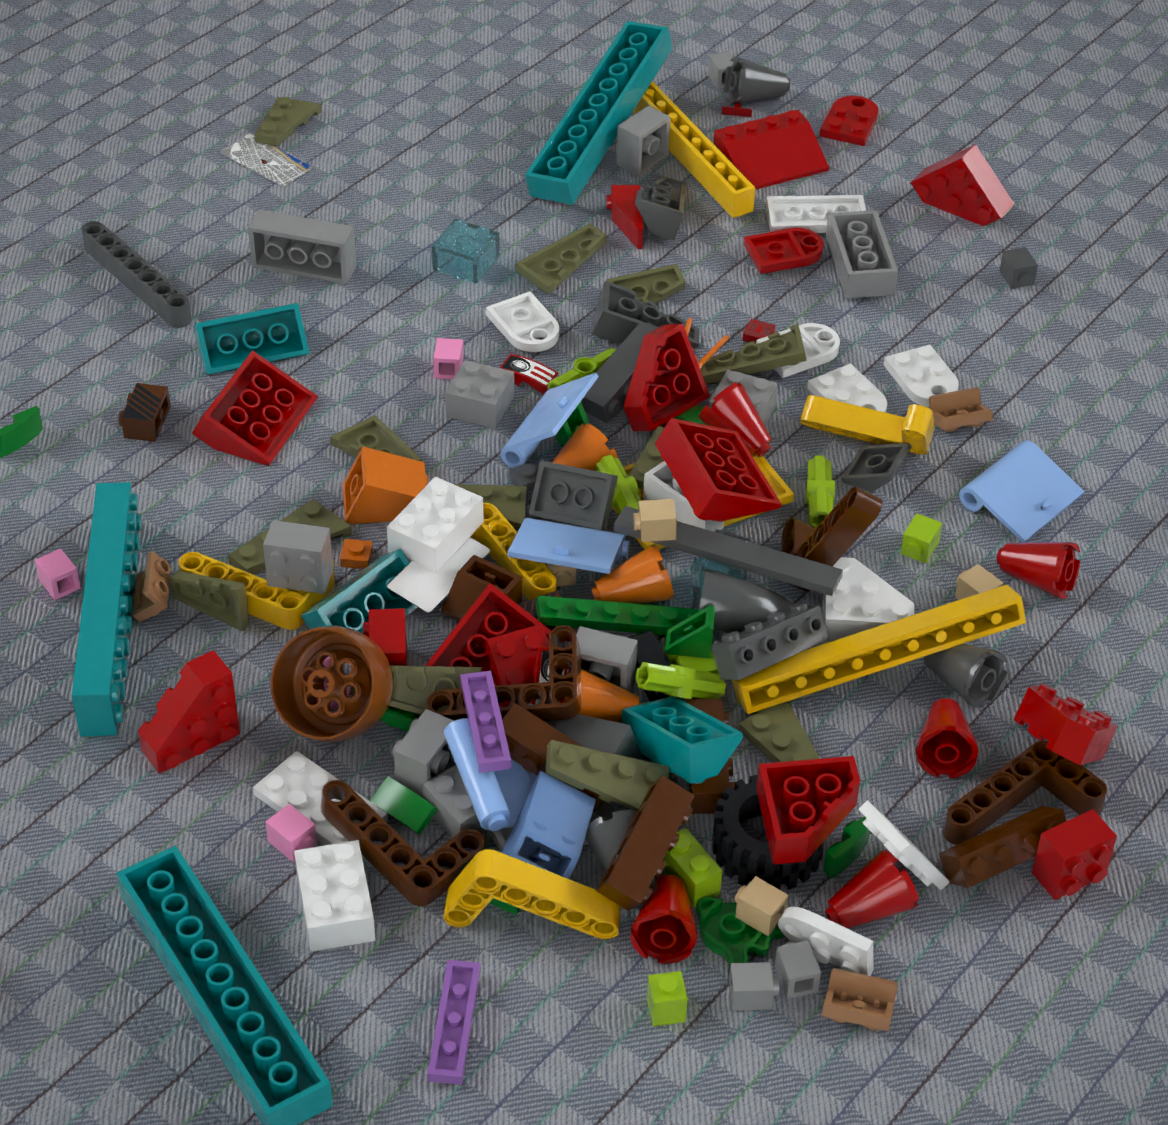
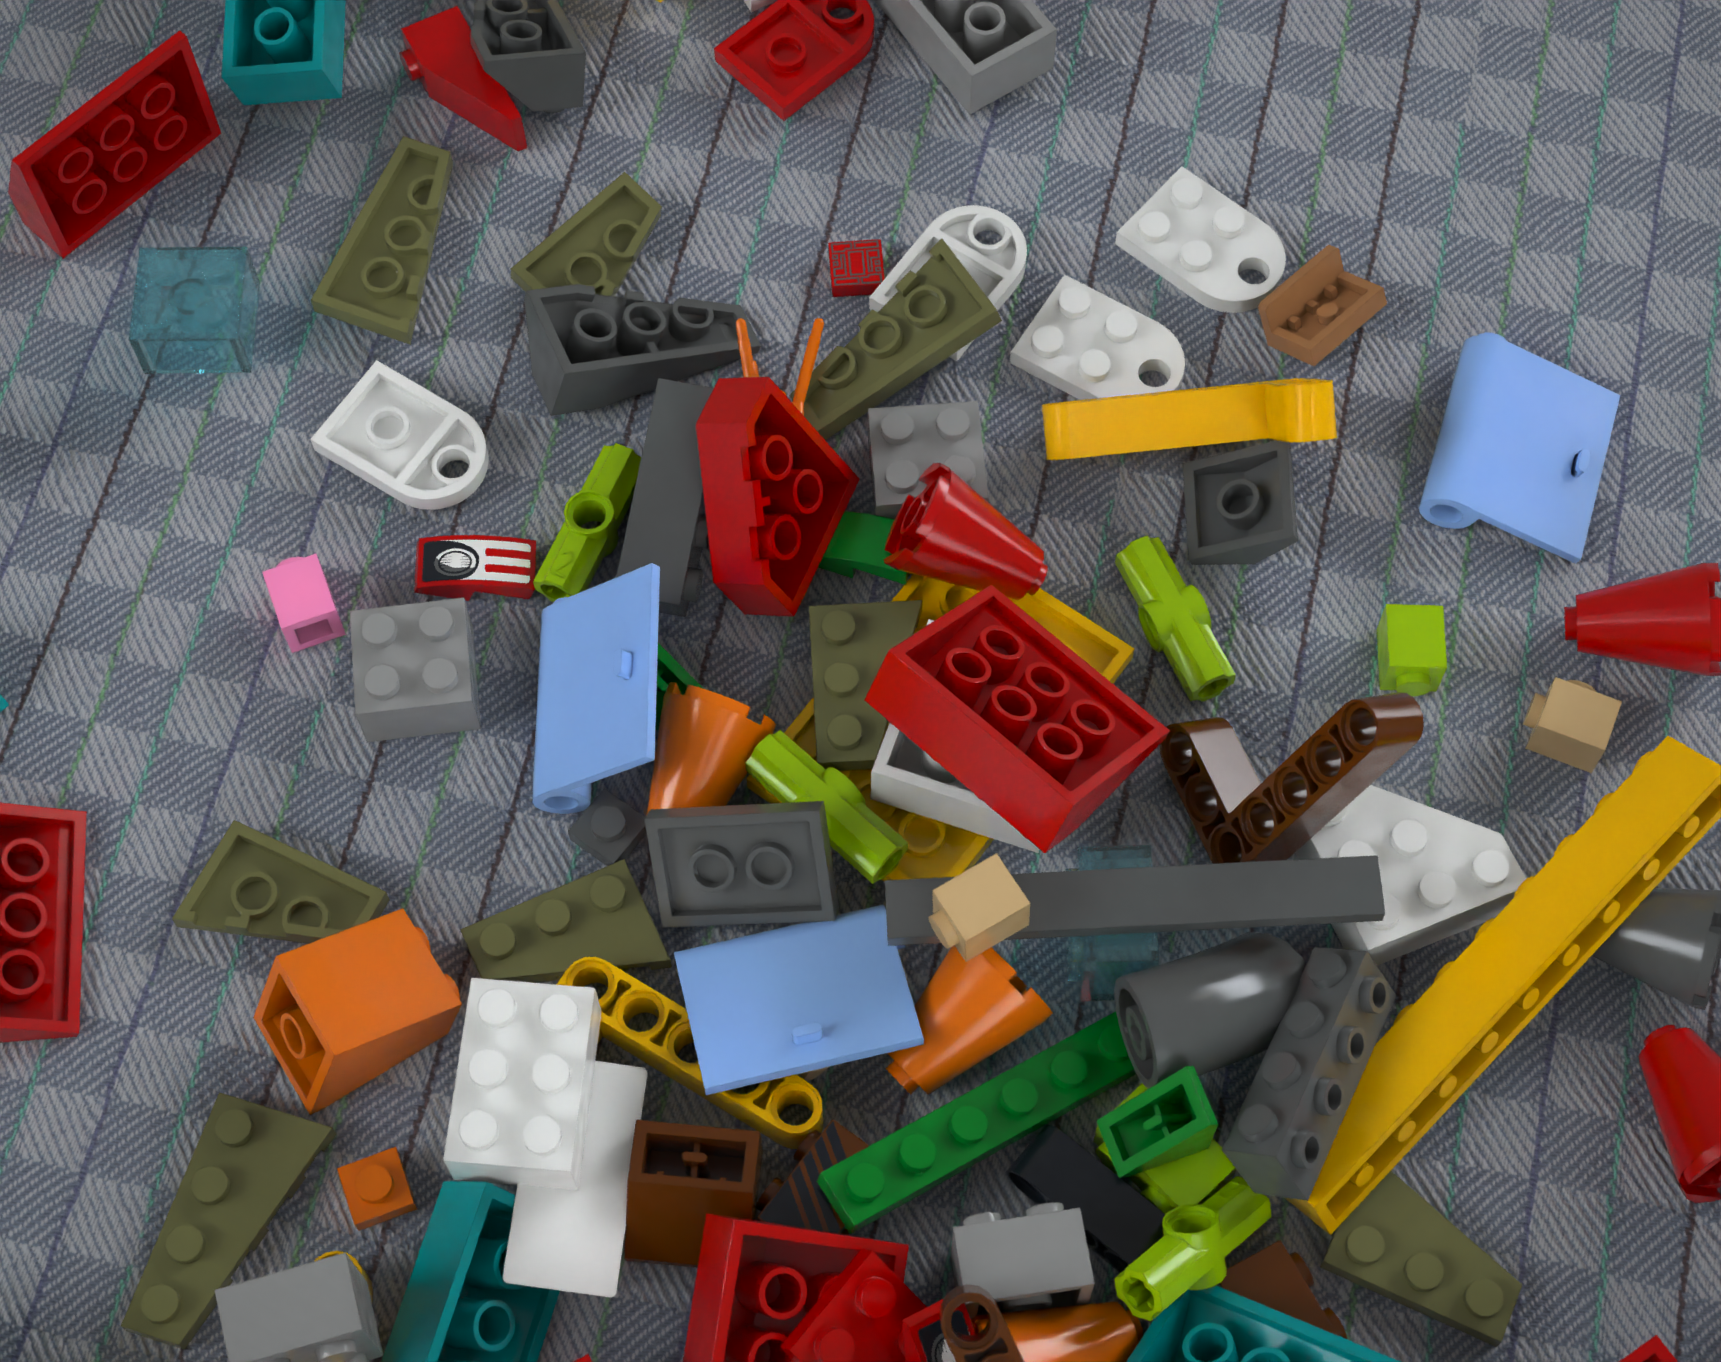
camera: 25 degrees left, 20 degrees up
(465, 181) = (114, 148): none -> red slope

